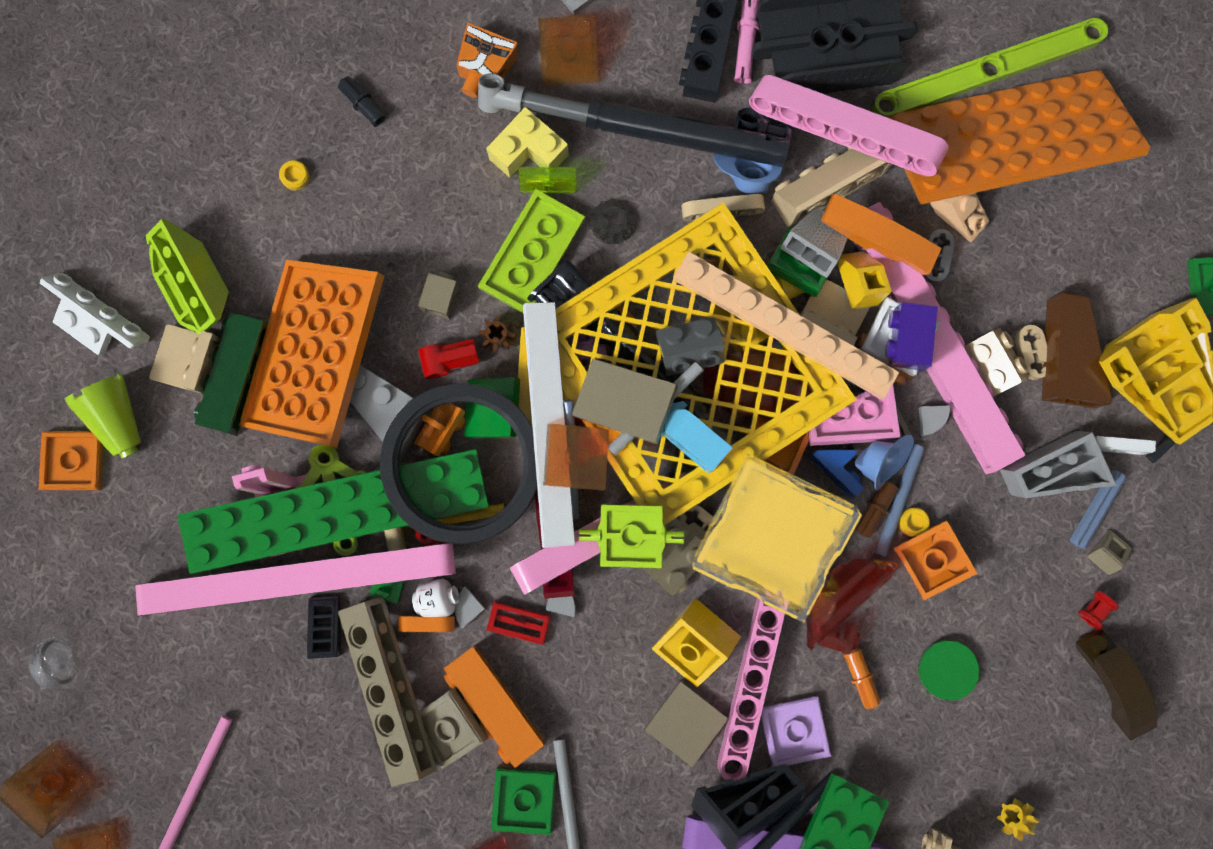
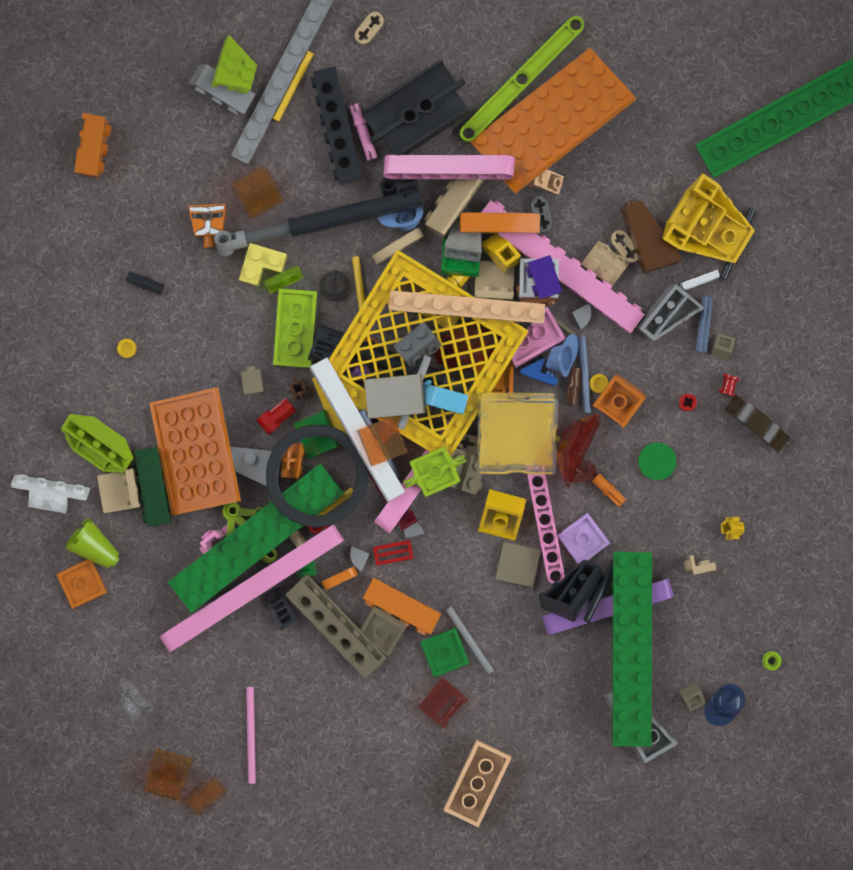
camera: 20 degrees left, 5 degrees up
(435, 598) = (338, 561): white head -> none
(650, 224) = (358, 281): none -> yellow bar
(1036, 613) = (686, 408): none -> red bush

